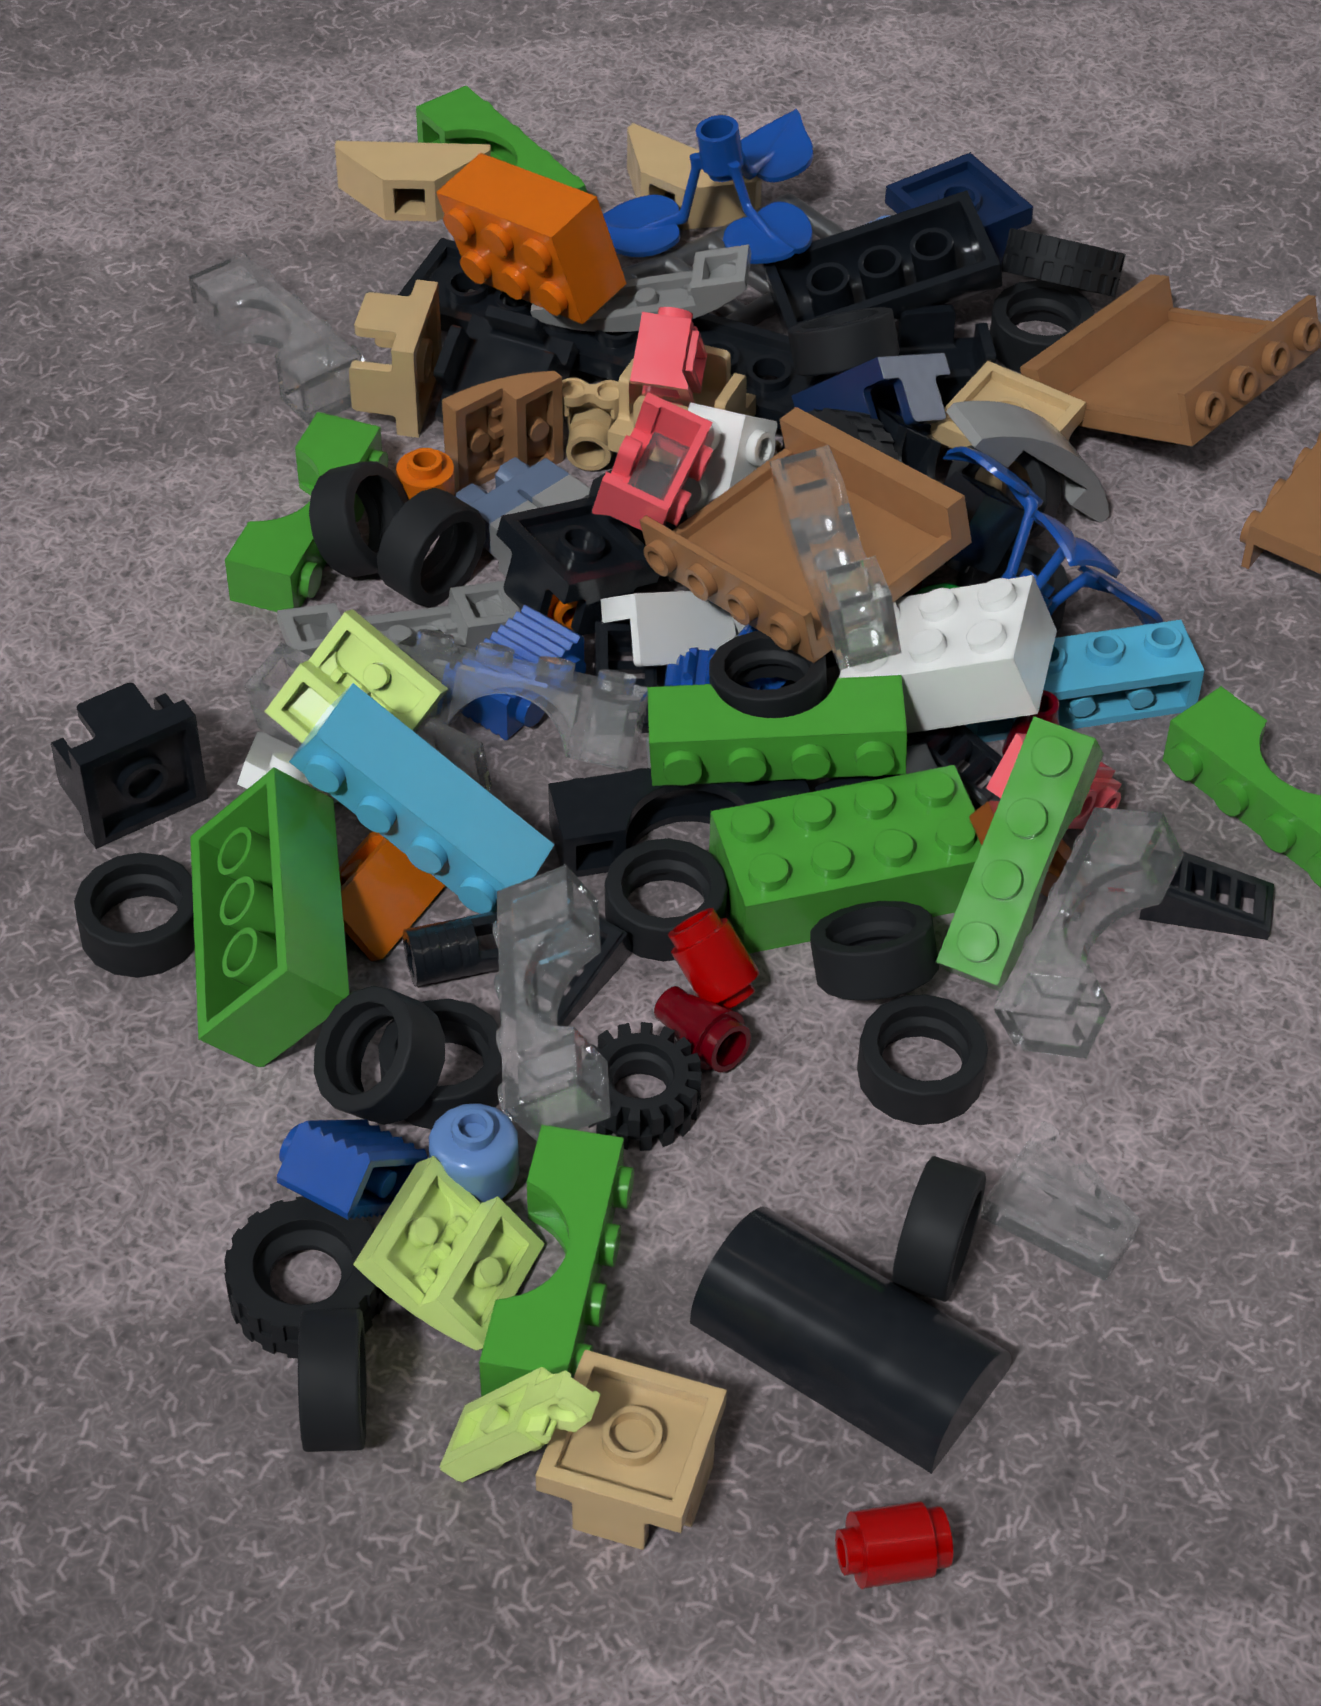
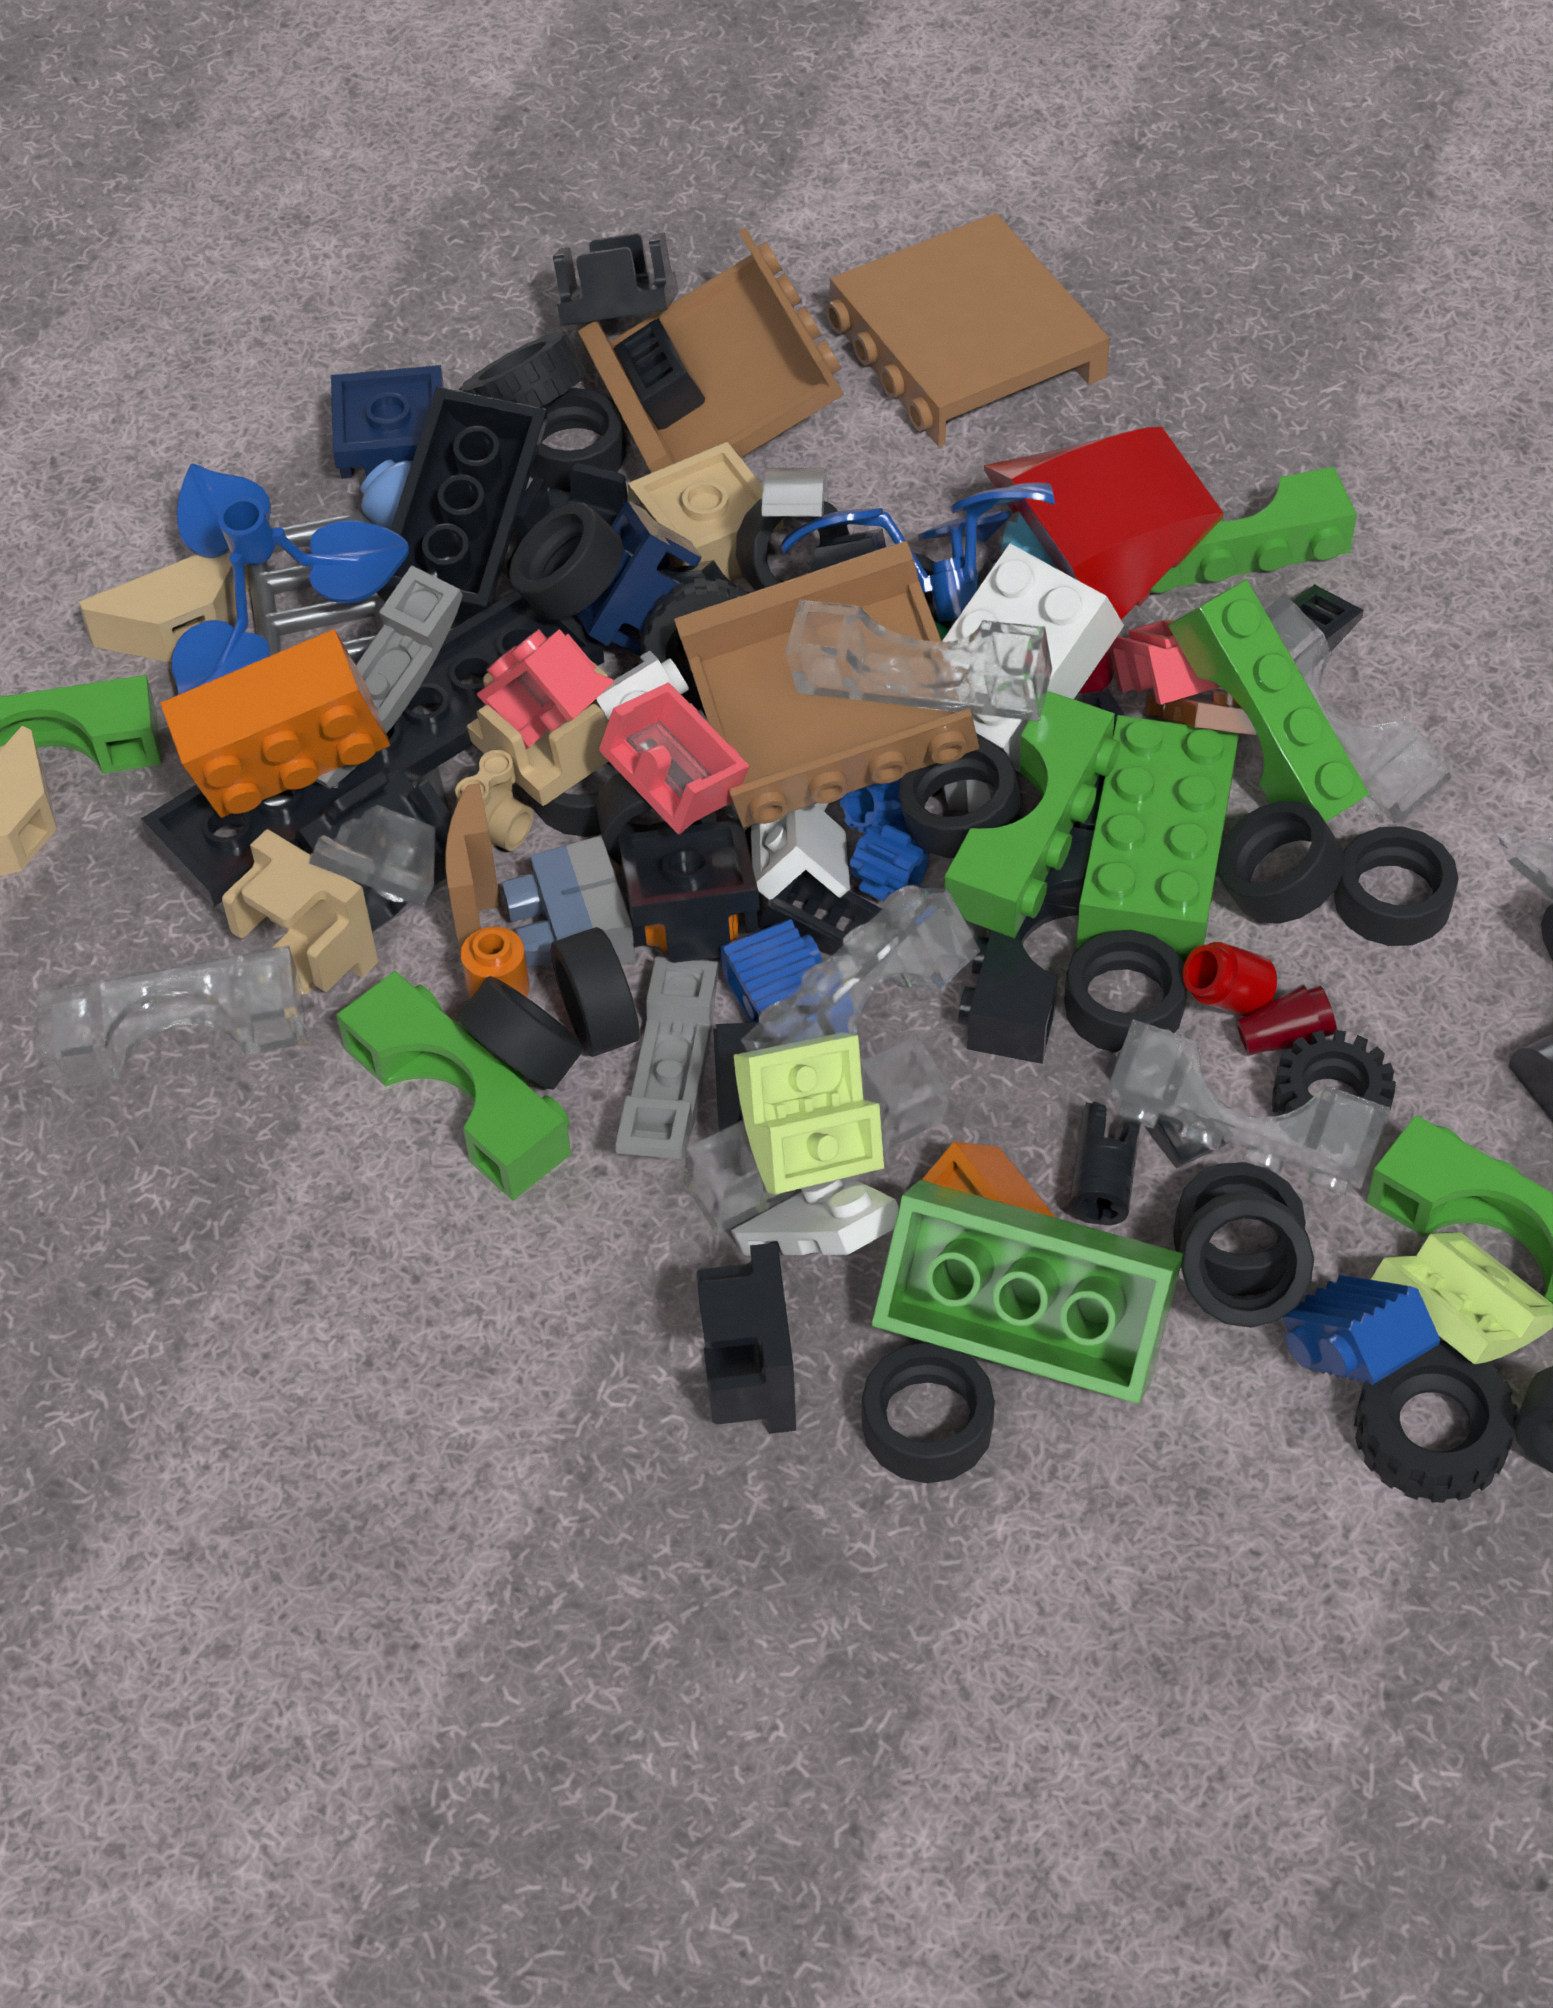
camera: 60 degrees left, 5 degrees up
(419, 801) = (969, 1109): medium azure brick -> none
(460, 351) = (383, 853): none -> clear wing
(477, 1149) = (1364, 1230): medium blue head -> none
(1141, 341) = (661, 377): none -> black slope
(1186, 671) = (1119, 510): none -> red wedge
(1195, 268) = (614, 279): none -> black panel

